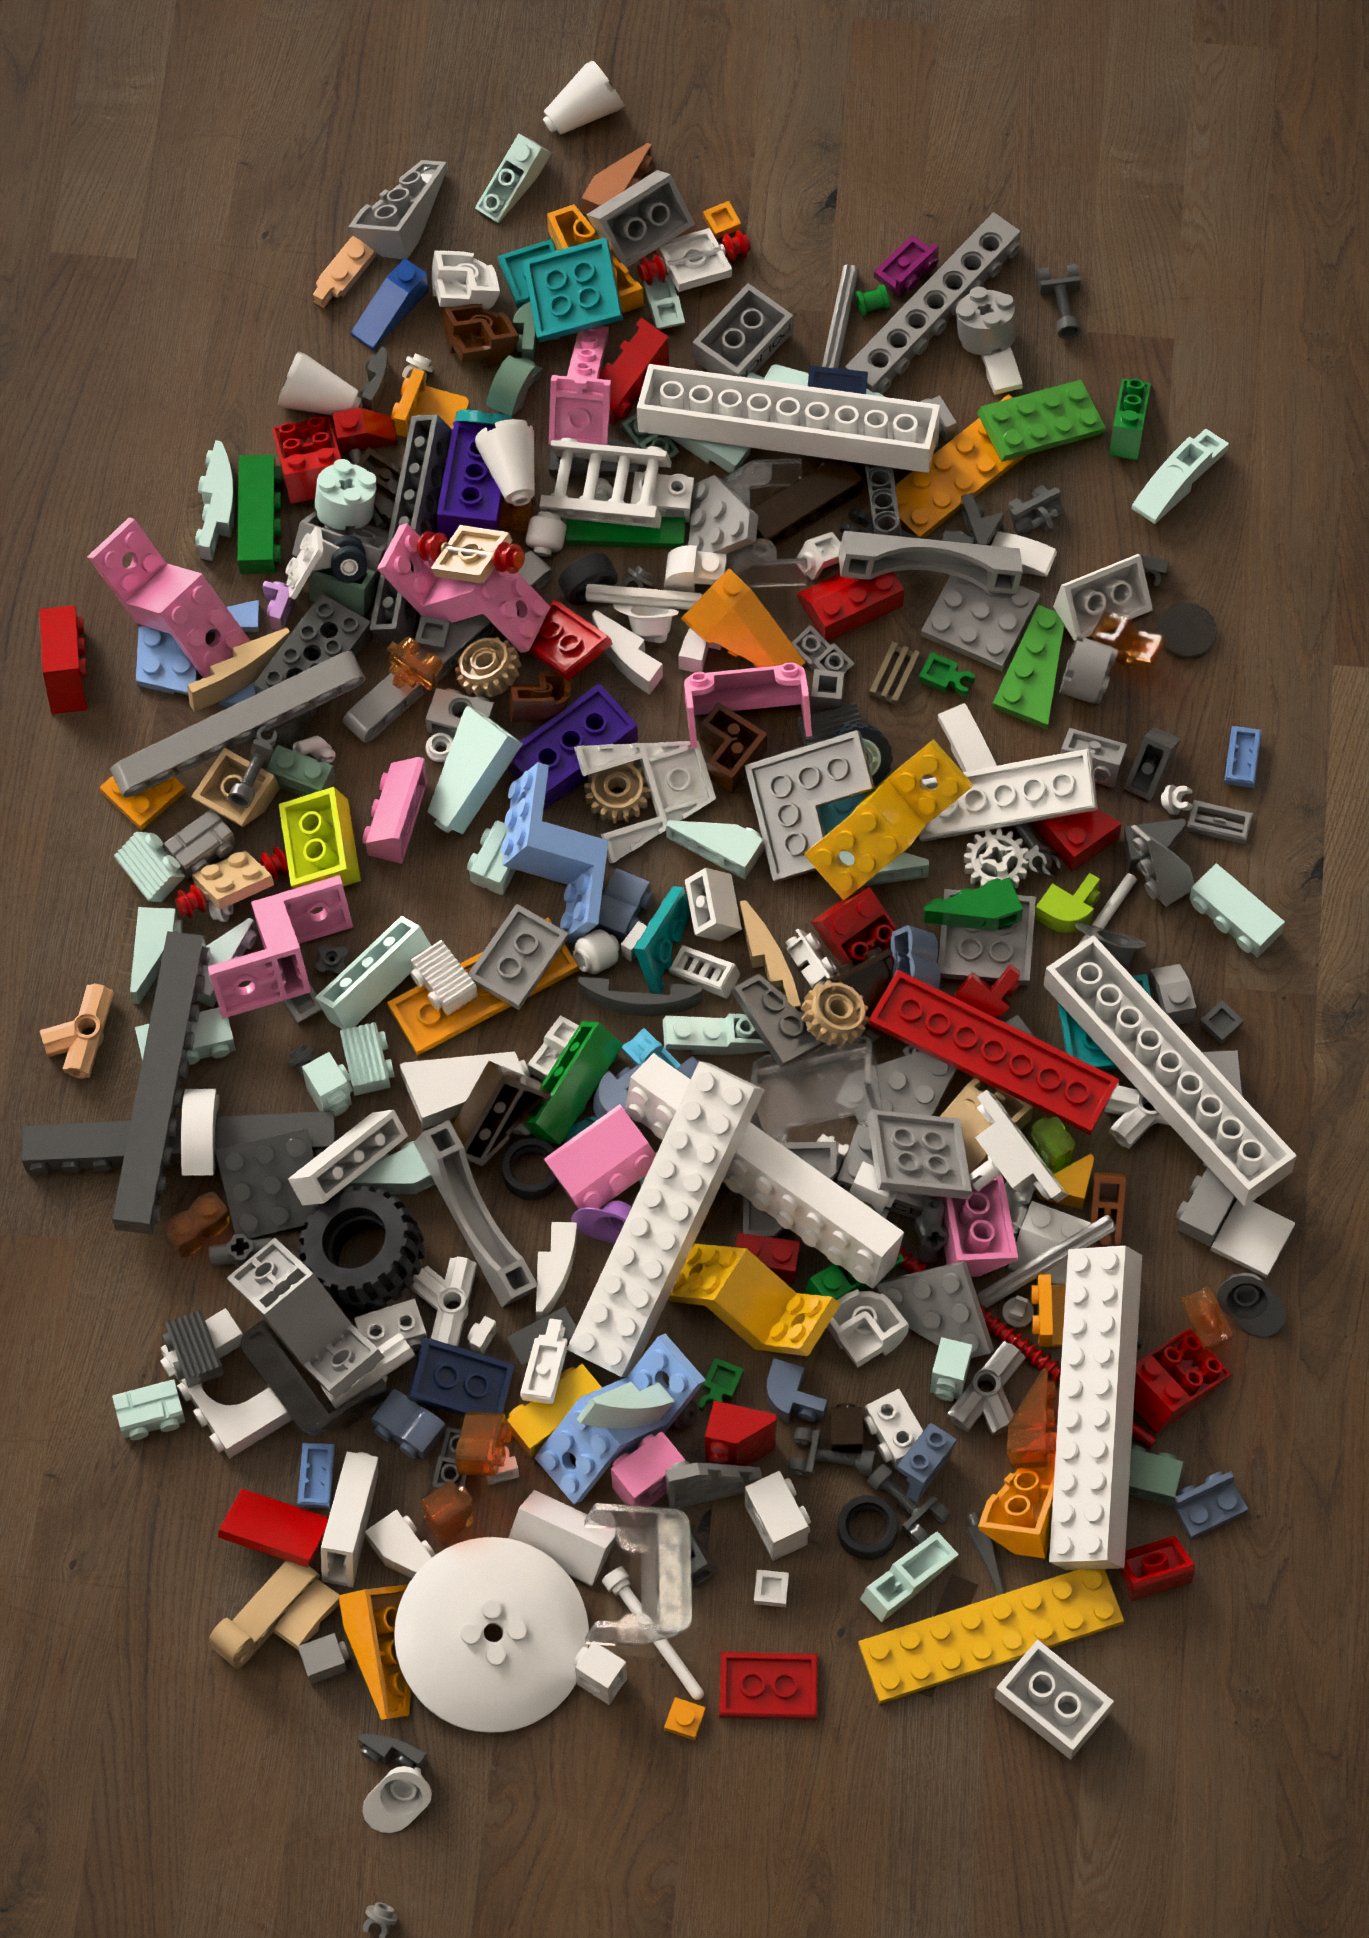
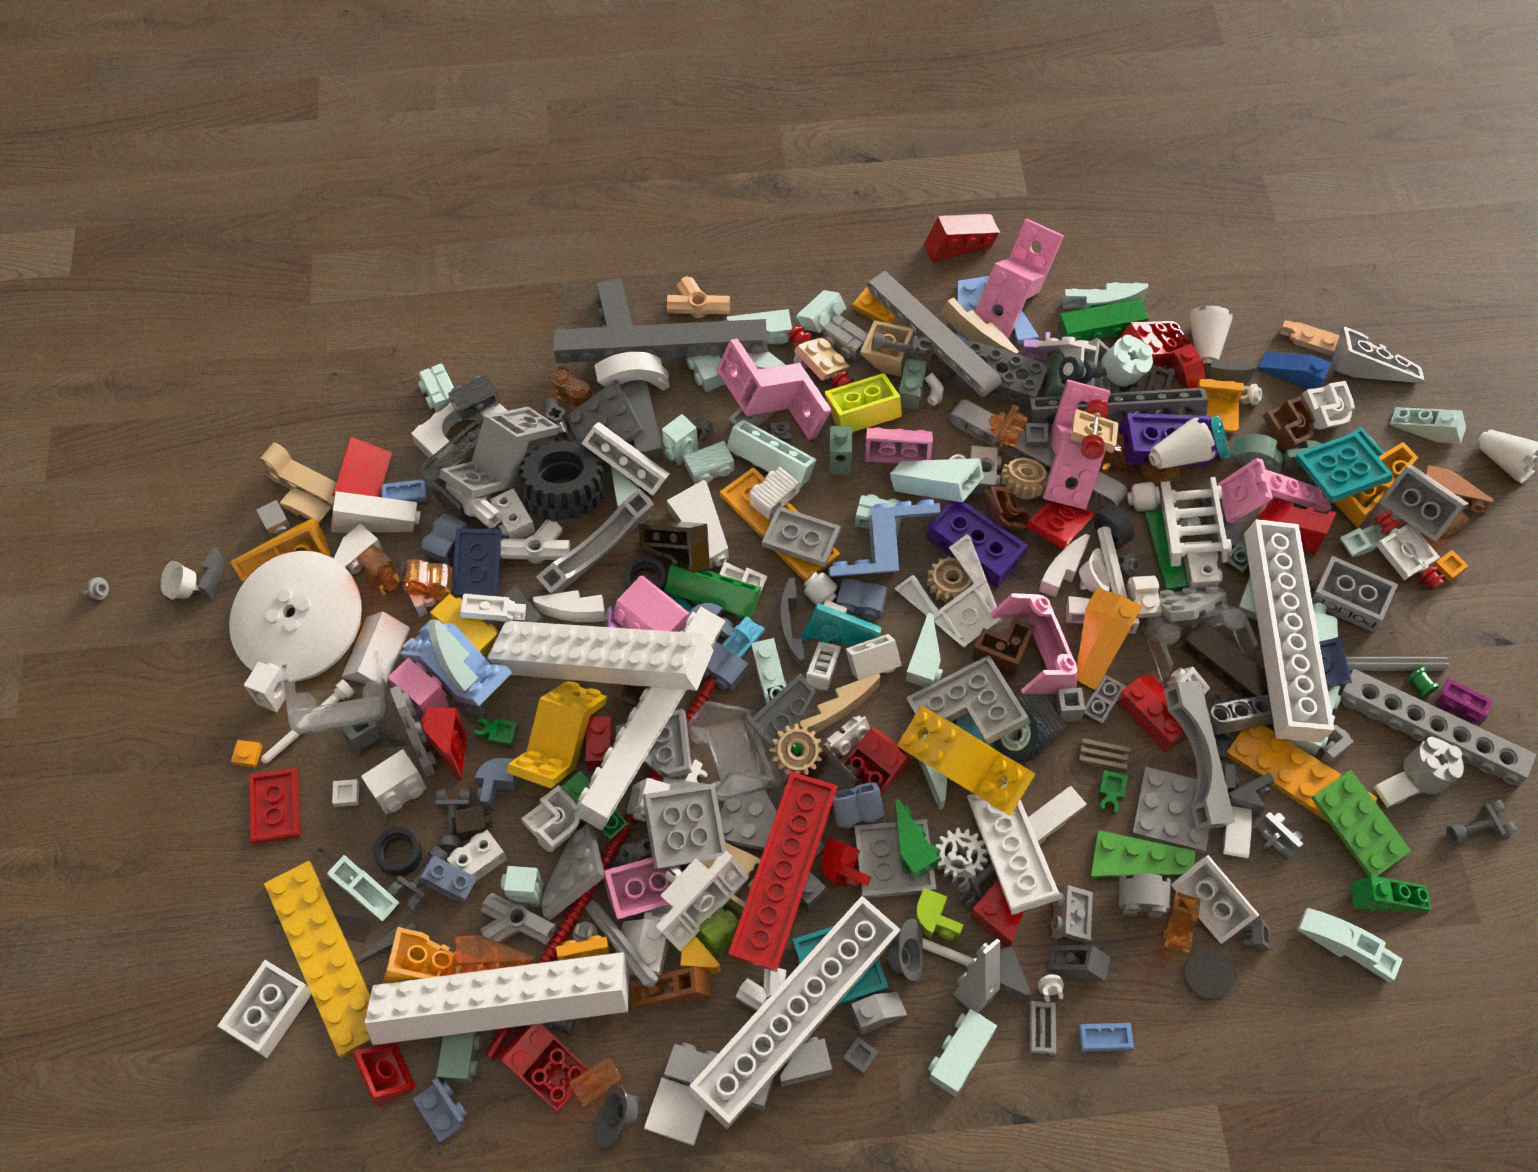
camera: 80 degrees right, 5 degrees down
(386, 885) = (840, 444): none -> sand green torso
(482, 1335) = (515, 571): white plate -> none

